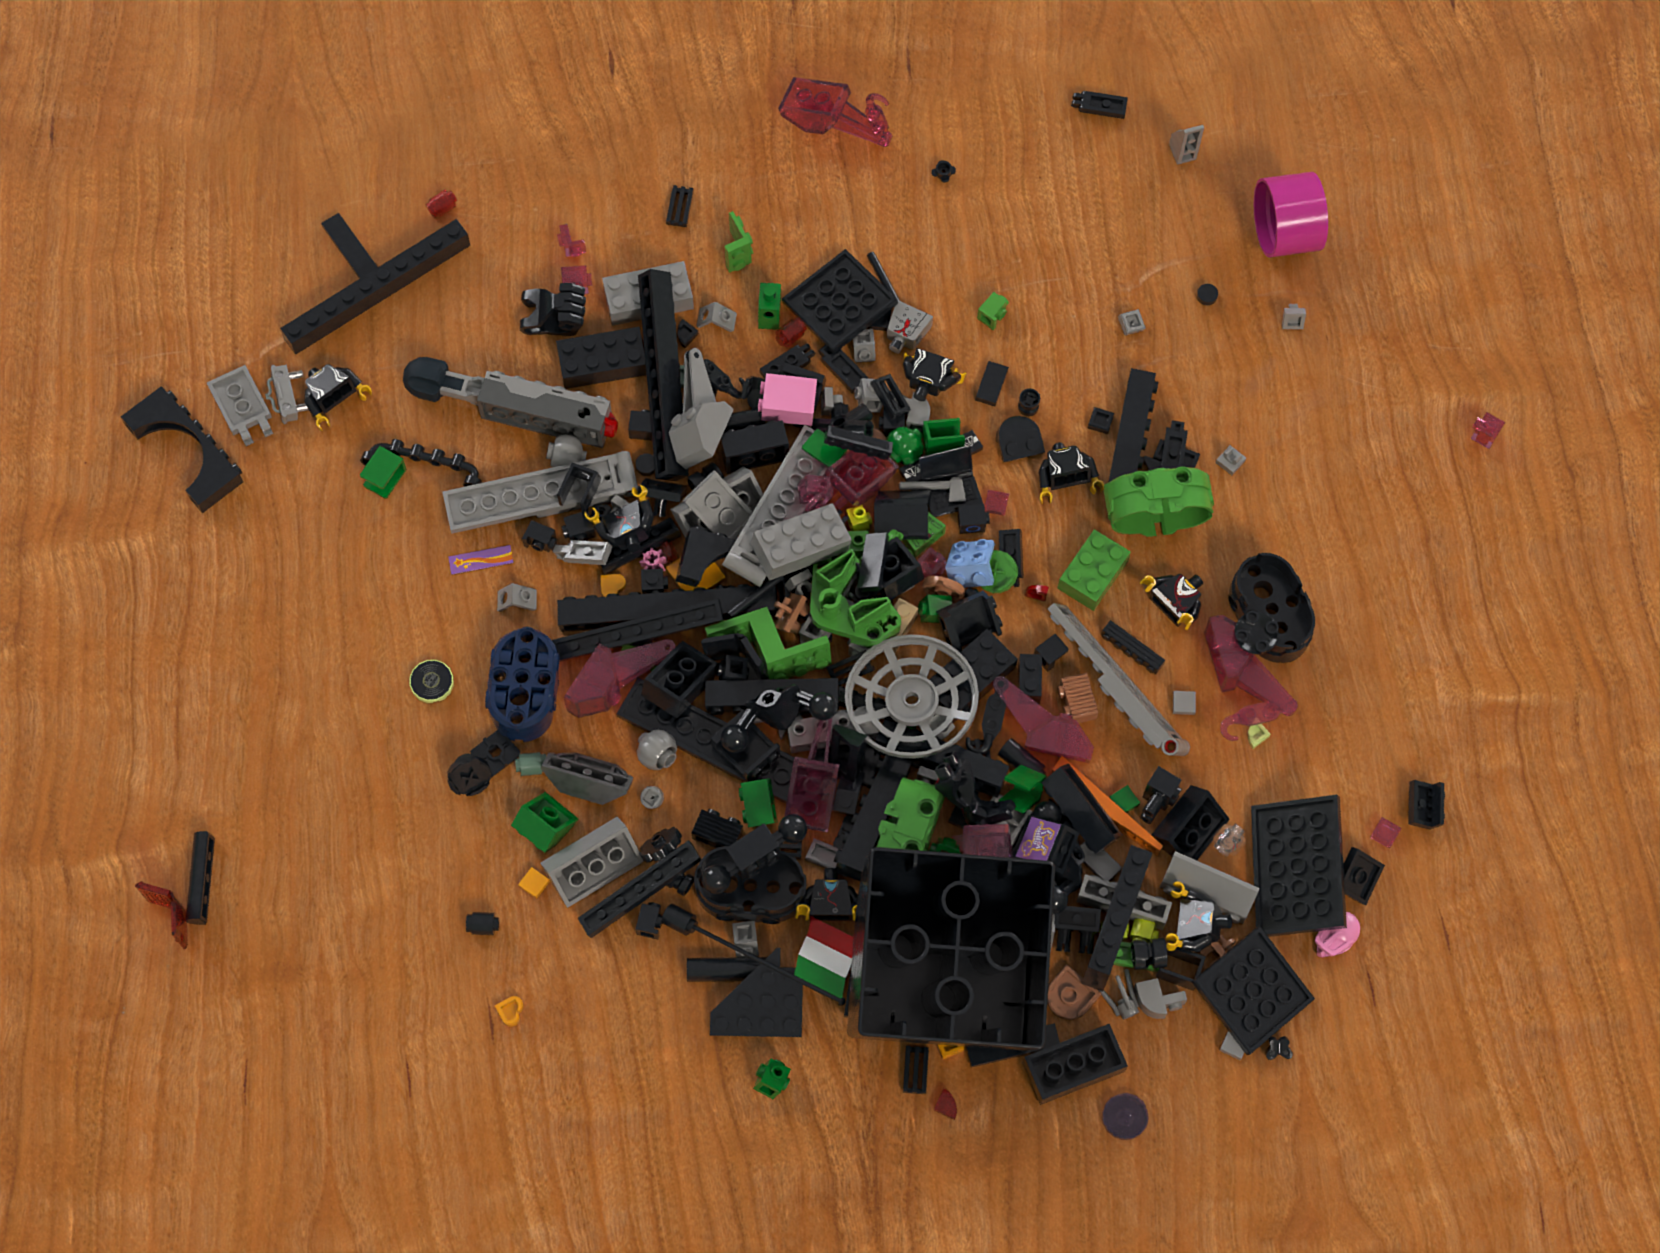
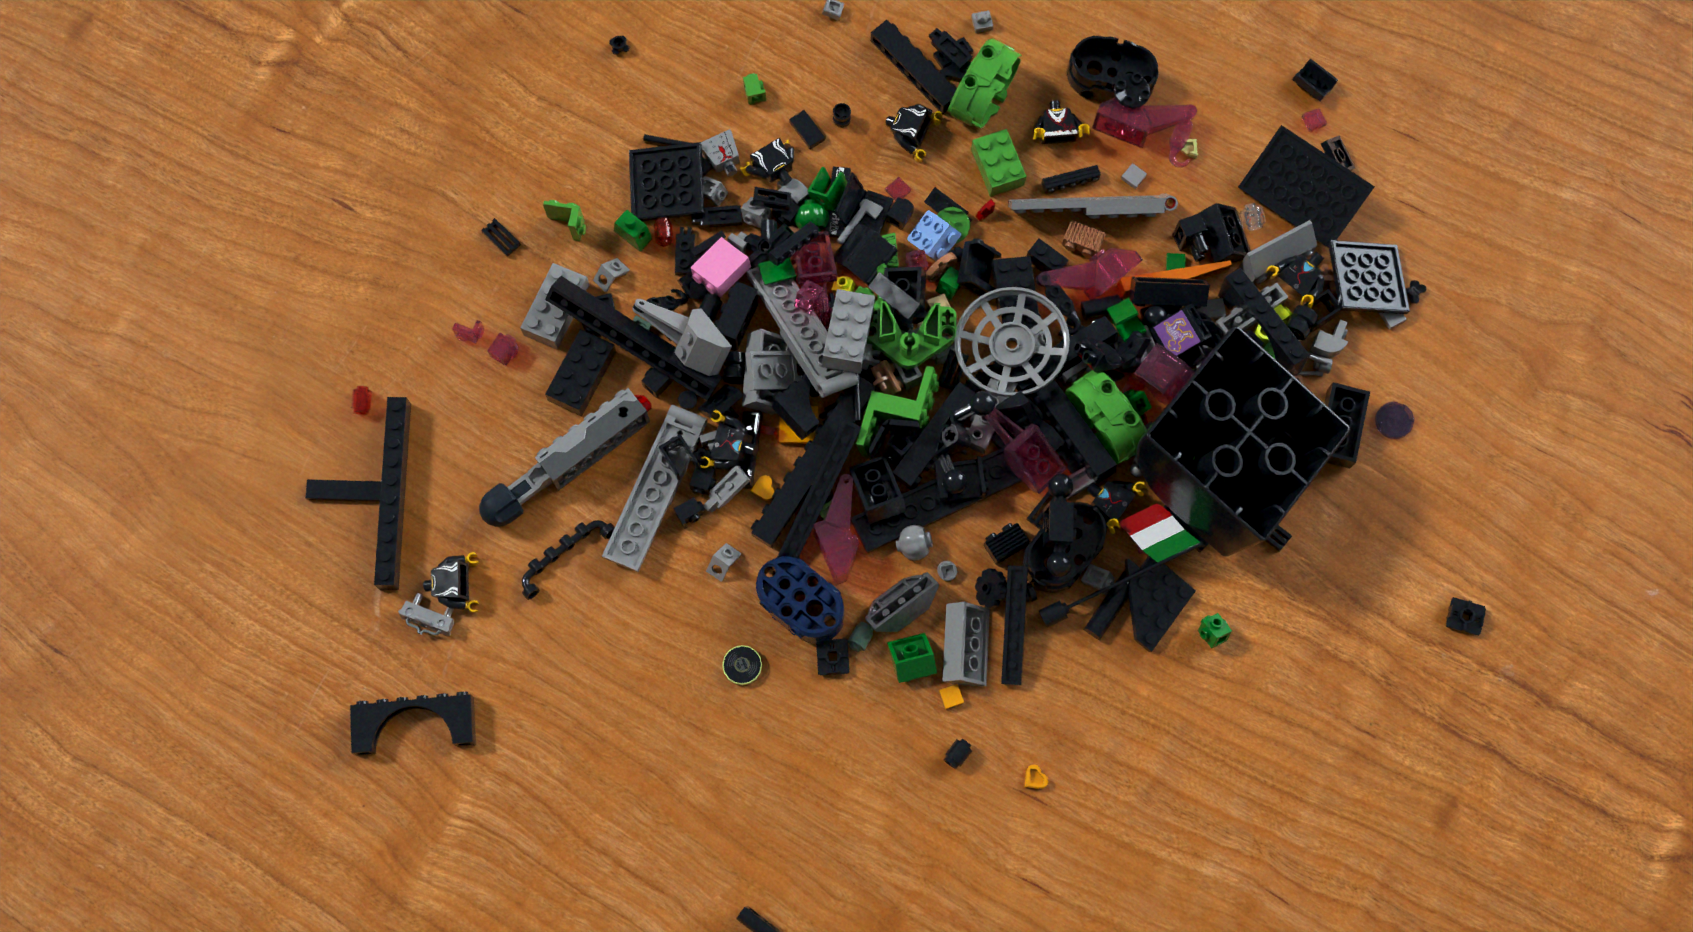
camera: 55 degrees left, 5 degrees up
(240, 403) = (408, 655): light grey tile -> none
(383, 472) = (550, 588): green piece -> none
(469, 775) = (839, 686): black tile -> none
(480, 559) = (671, 566): medium lavender sticker -> none
(554, 312) = (519, 379): black piece -> none
(565, 451) = (635, 449): light grey plant -> none
(649, 920) = (1039, 635): black brick -> none
(653, 560) = (767, 440): bright pink gear -> none
(653, 580) = (786, 457): black brick -> none
(758, 802) = (1007, 499): green brick -> none
(823, 105) = (508, 84): clear pink slope -> none
(946, 1105) = (1308, 528): clear red tile -> none
(1019, 438) = (863, 141): black slope -> none
(1051, 651) = (1036, 230): black panel -> none
(1100, 420) = (889, 80): black tile -> none
(1338, 940) = (1373, 204): bright pink helmet -> none

